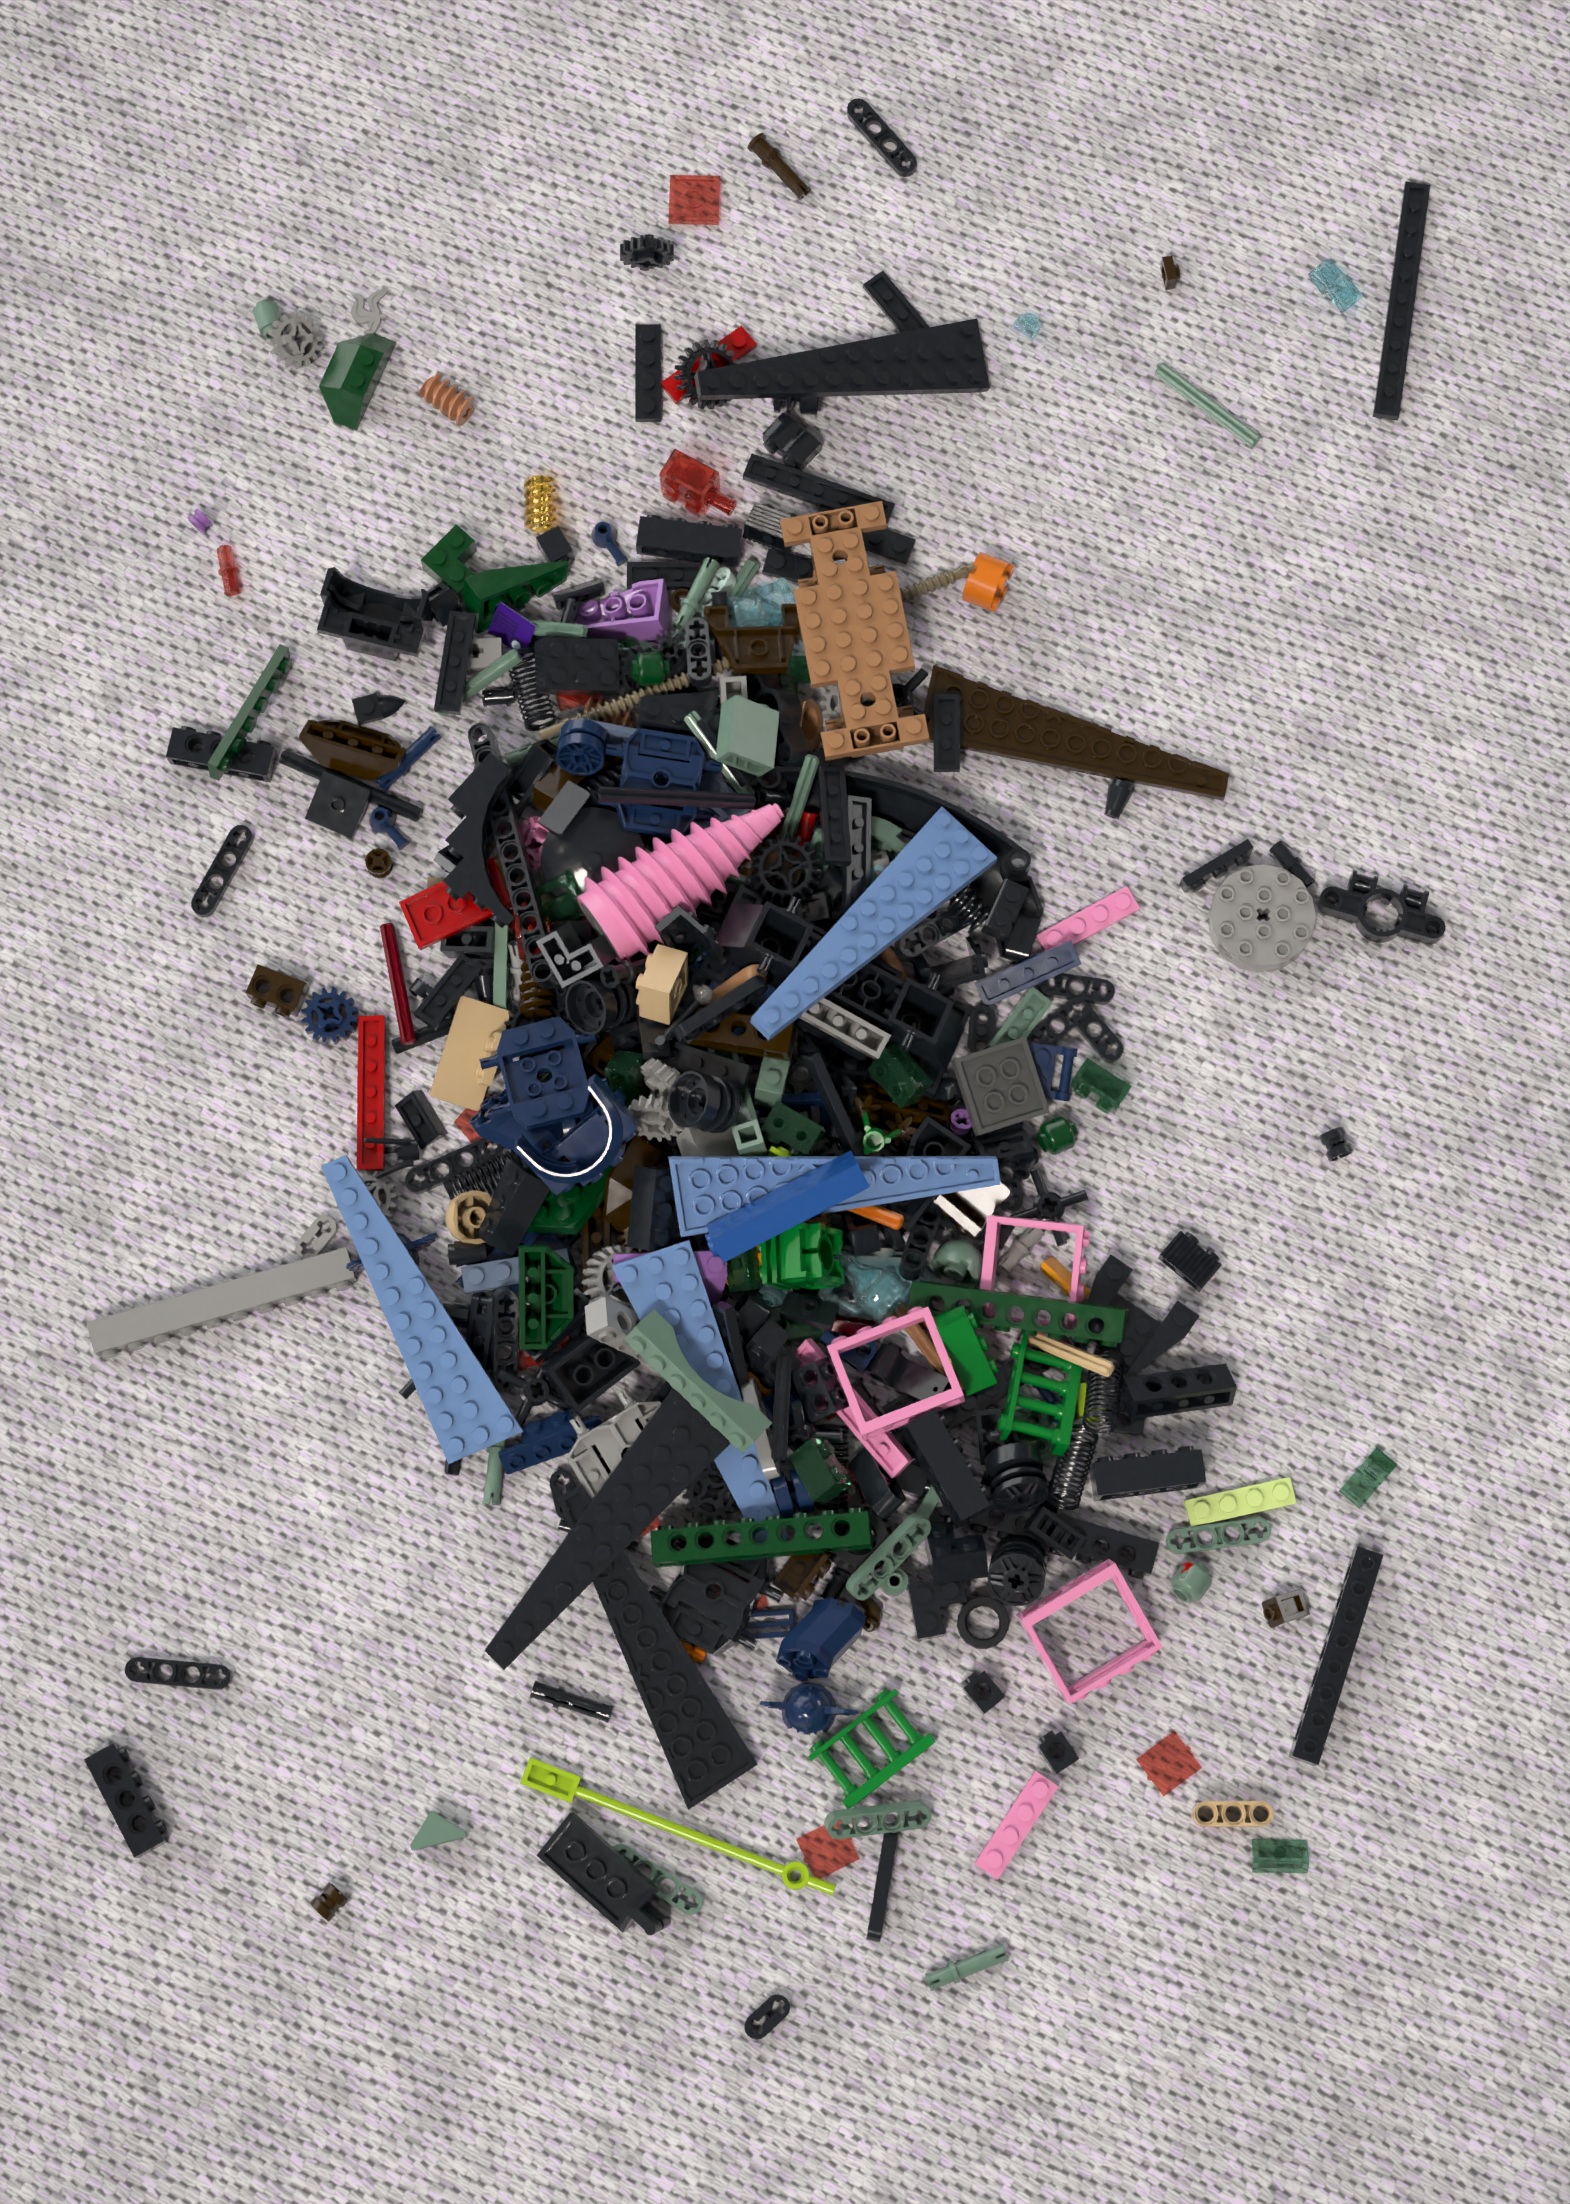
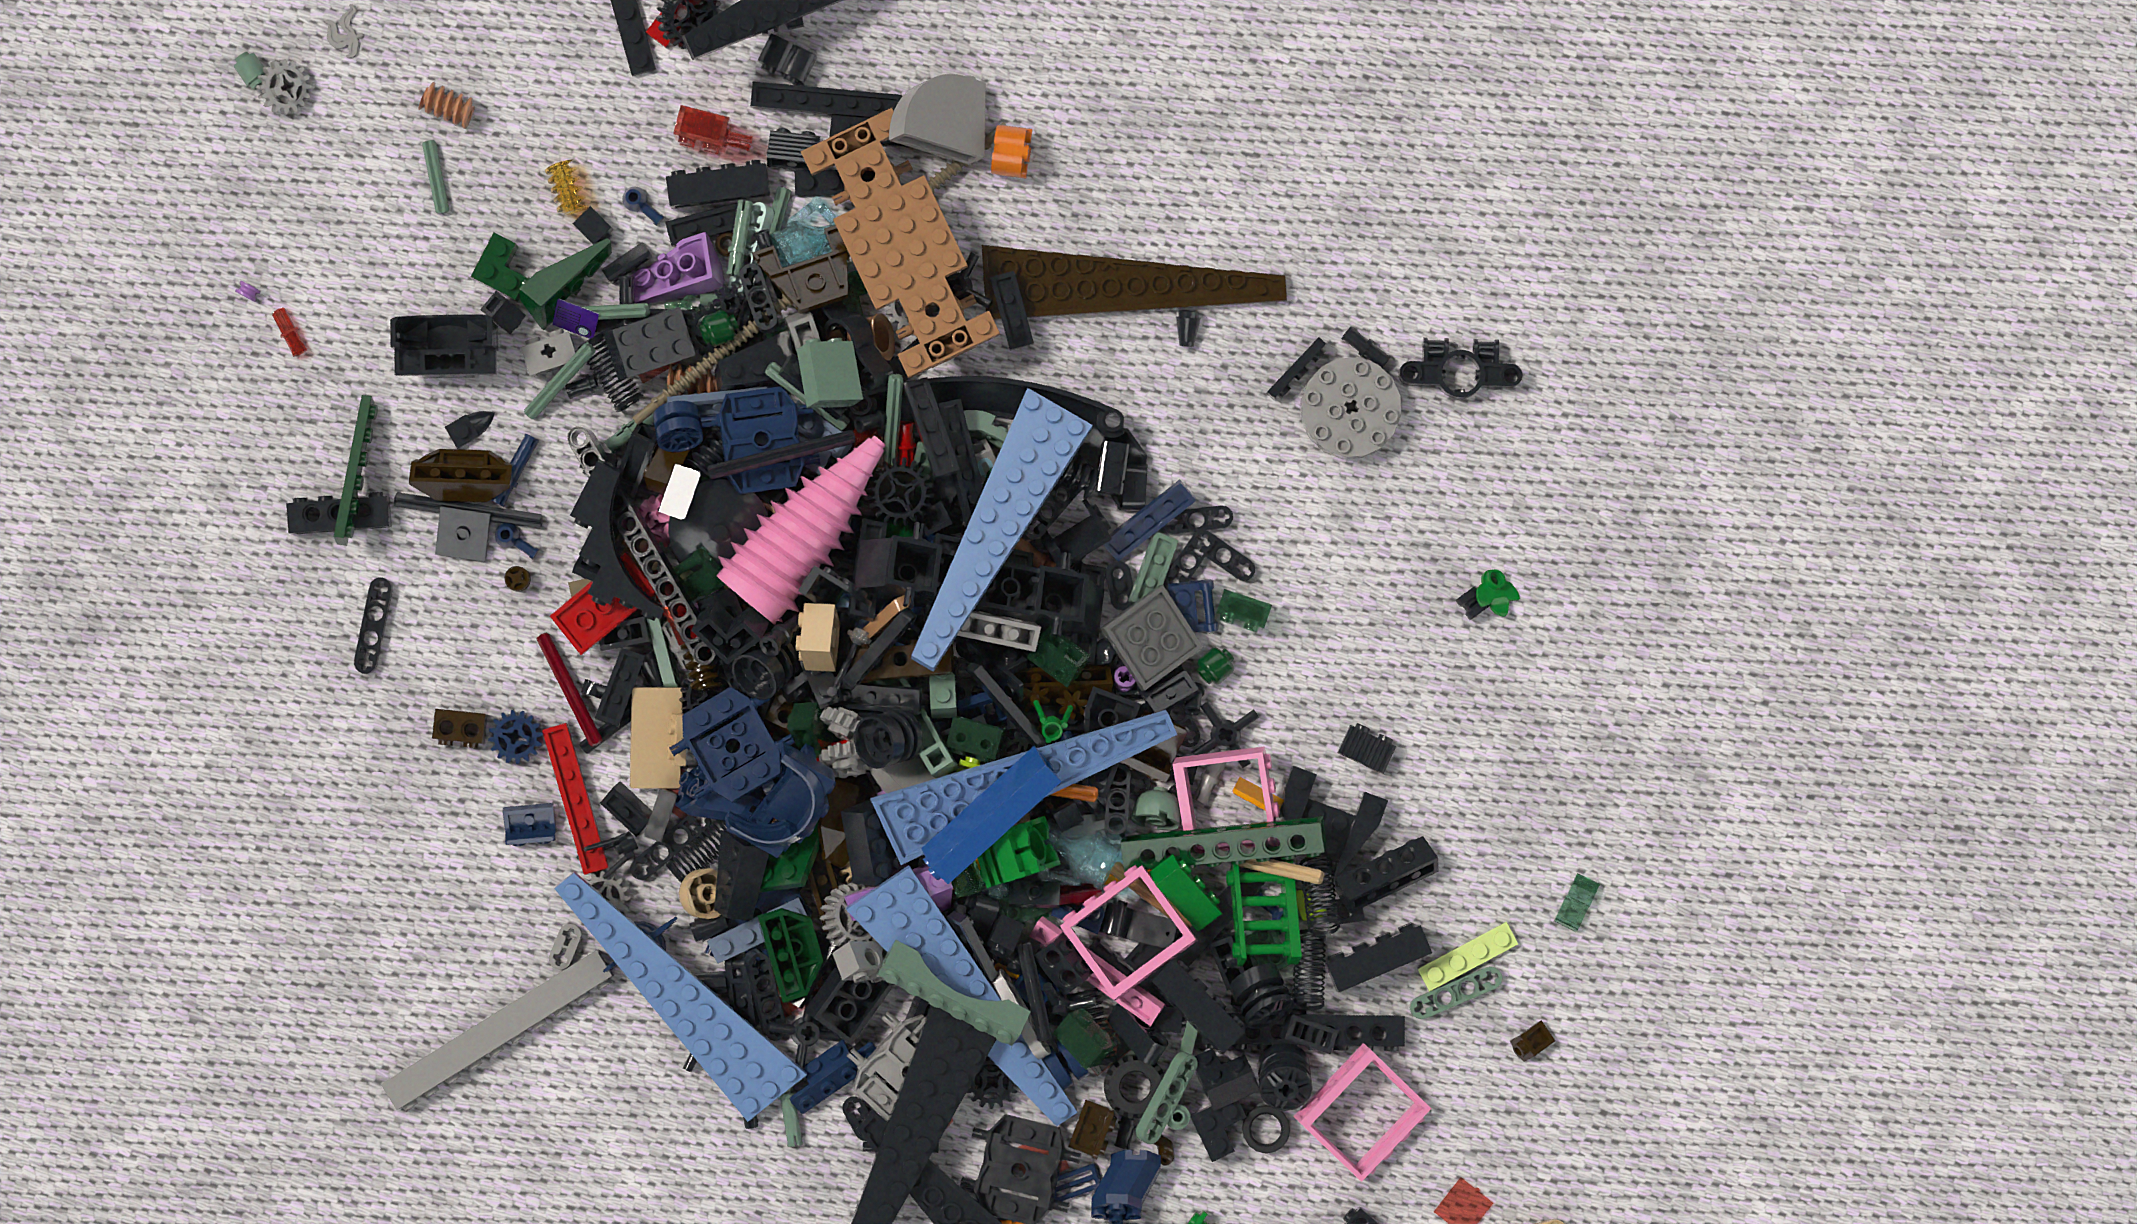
camera: 20 degrees left, 10 degrees up
(317, 1105) = (529, 824): none -> dark blue bracket
(354, 377) = (351, 105): dark green wedge -> none
(416, 462) = (435, 177): none -> sand green axle
(451, 1130) = (660, 815): none -> black slope
(455, 663) = (533, 370): black plate -> none
(665, 1536) = (961, 1136): dark green brick -> none
(930, 528) = (943, 118): none -> light grey brick
(984, 1704) = (1293, 1191): black brick -> none
(1090, 920) = (1191, 452): bright pink plate -> none
(1191, 1581) = (1442, 1041): sand green head -> none
(1336, 1656) = (1587, 1072): black brick -> none
(1363, 1139) = (1496, 592): none -> green plate

